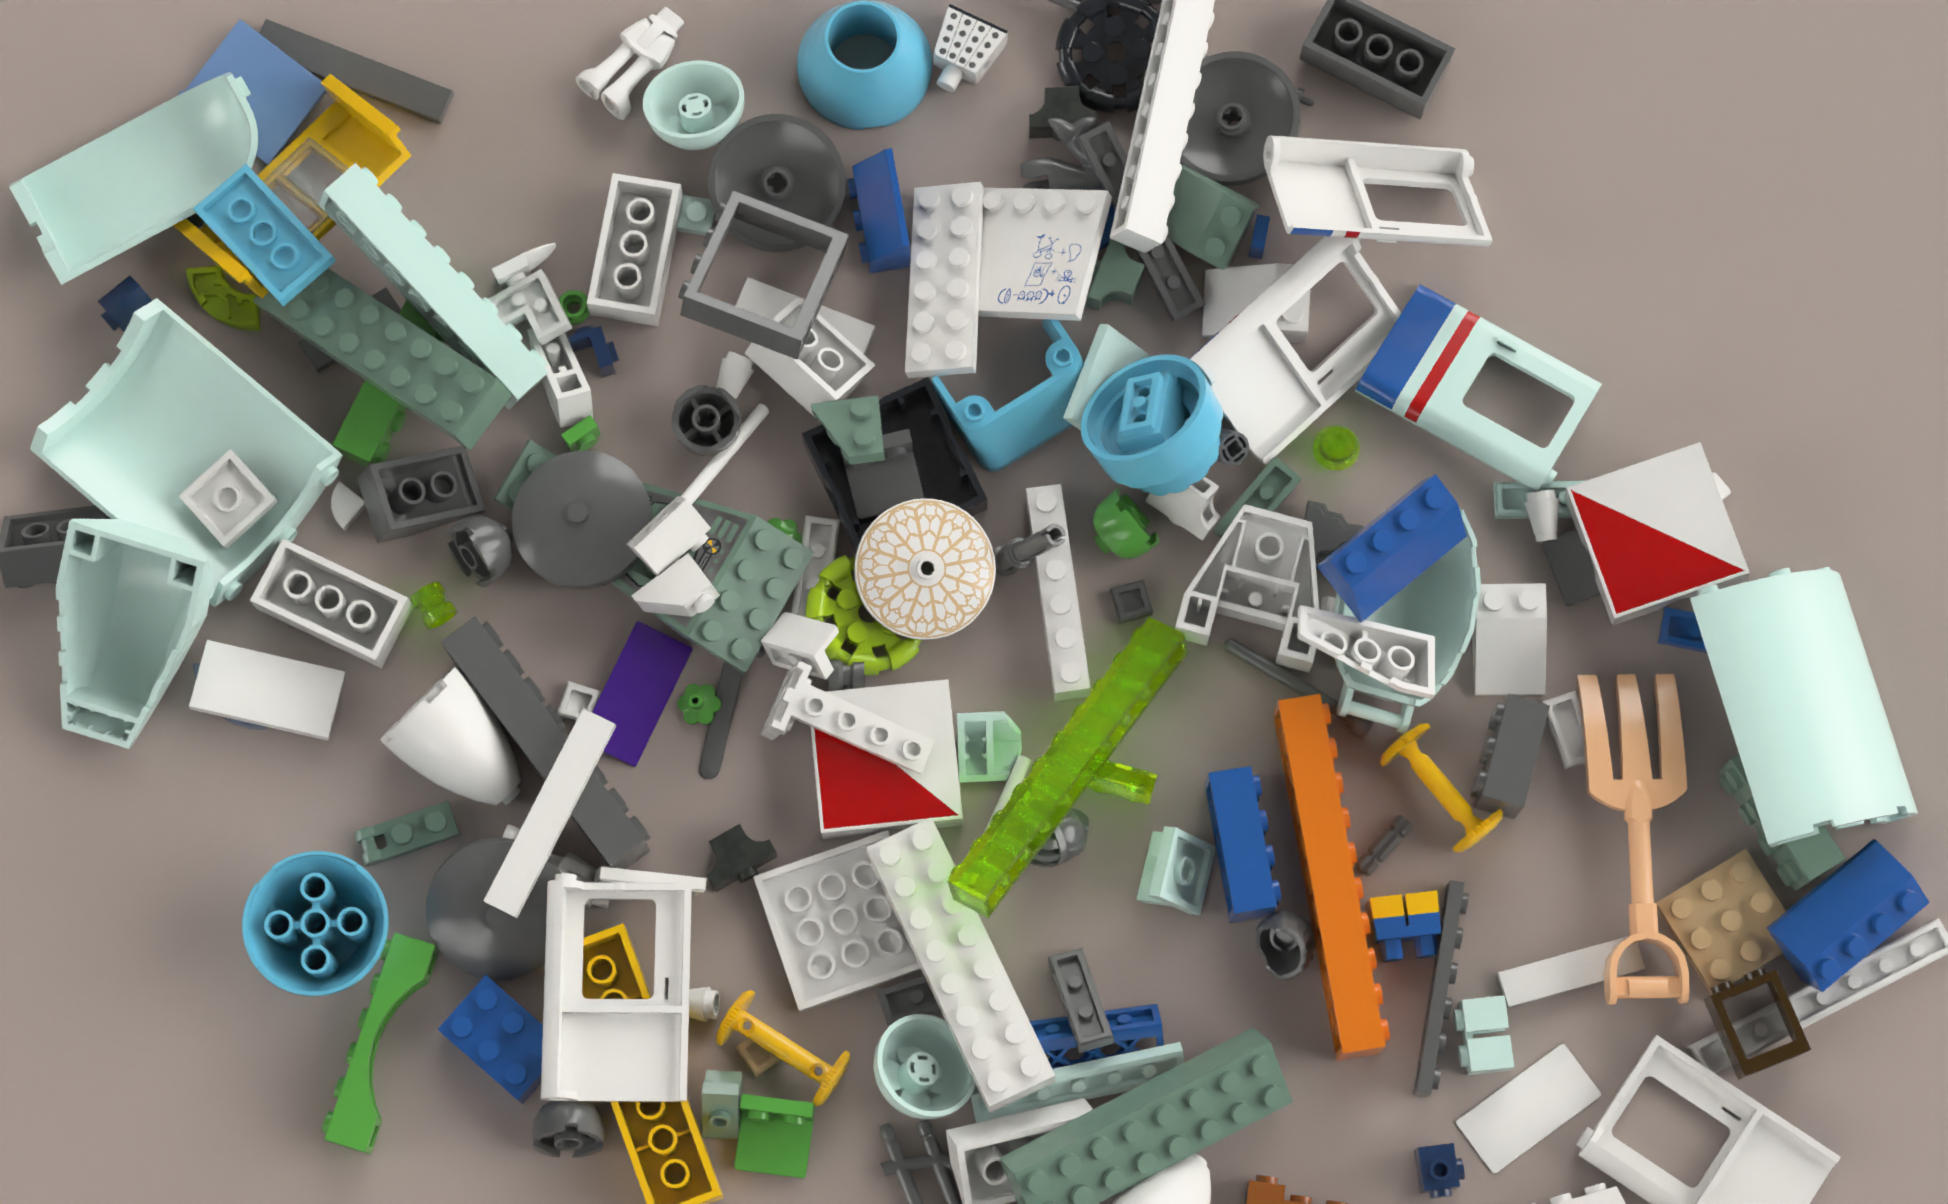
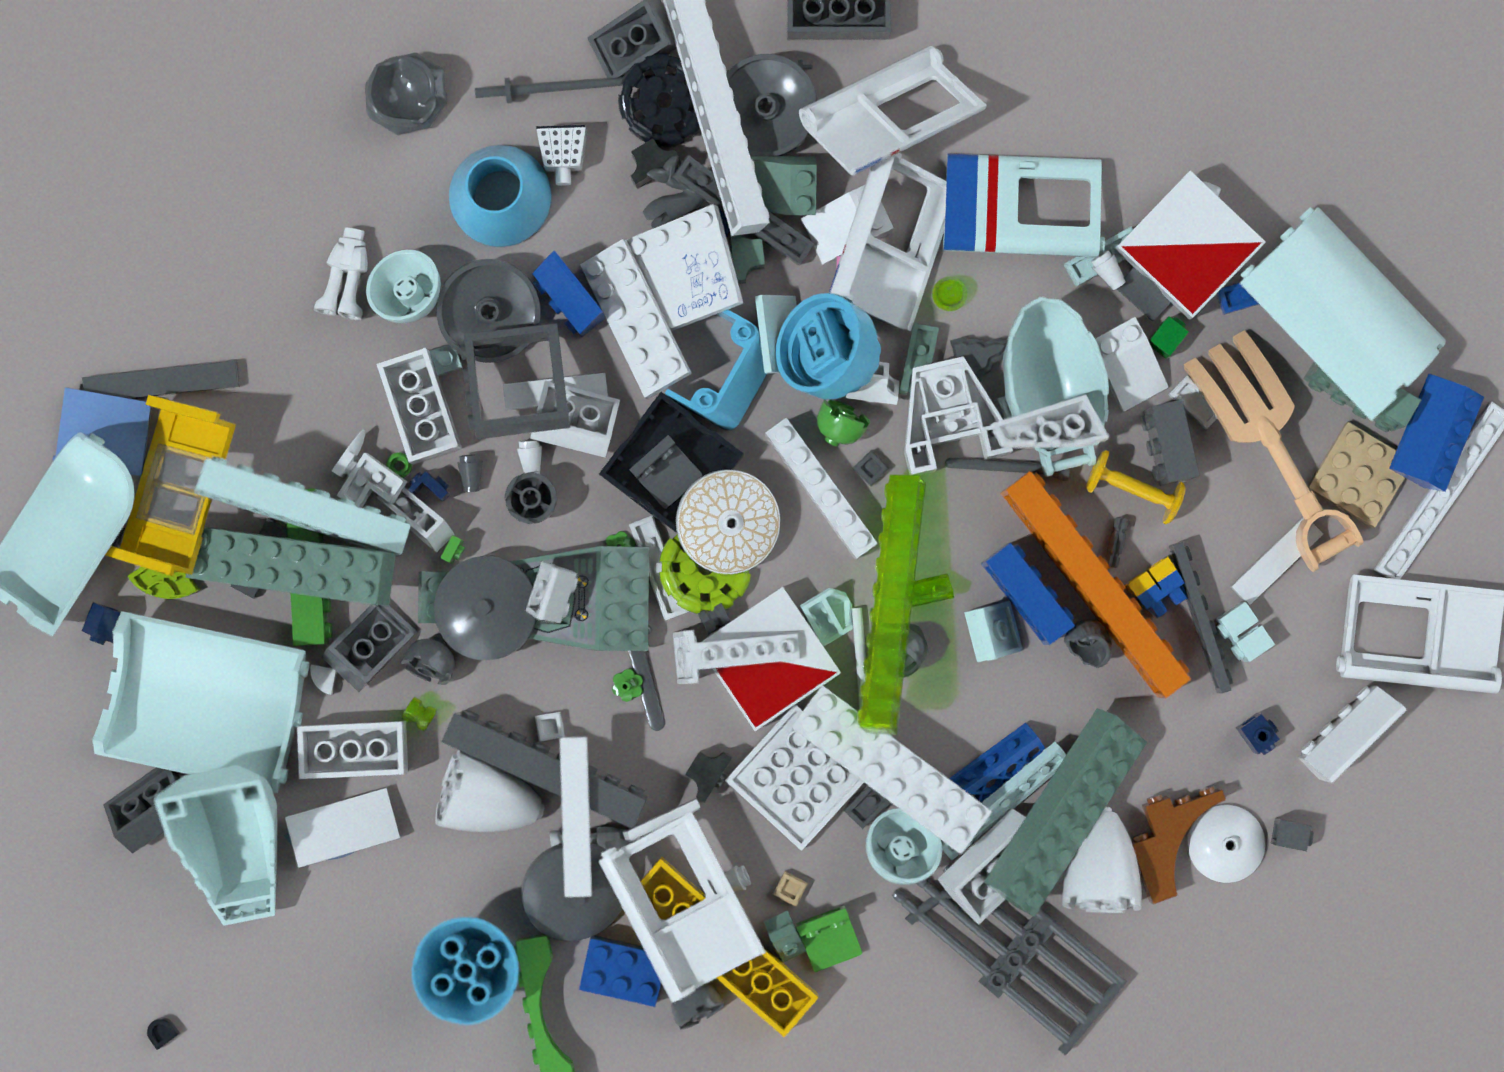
camera: 30 degrees left, 10 degrees up
(228, 498) = (245, 716): white plate -> none
(264, 235) = (169, 533): medium azure plate -> none
(408, 833) = (486, 869): sand green plate -> none
(640, 689) = (583, 697): dark purple sticker -> none
(653, 357) = (470, 472): none -> dark grey cone
(678, 590) = (578, 623): white slope -> none
(724, 456) = (555, 516): white bar -> none
(782, 1047) = (805, 881): yellow hose -> none
(800, 639) = (673, 613): white panel -> none
(853, 427) = (631, 453): sand green wing -> none
(1021, 552) = (784, 476): dark grey pin -> none
(1080, 1000) = (977, 748): dark grey tile -> none
(1233, 447) = (885, 331): dark grey wheel -> none
(1259, 236) = (825, 177): blue tile -> none
(1395, 547) = (1032, 351): blue slope -> none
(1528, 1108) = (1293, 662): white sticker -> none
(1575, 631) = (1168, 336): none -> green brick
(1742, 1066) = (1431, 553): dark brown window -> none

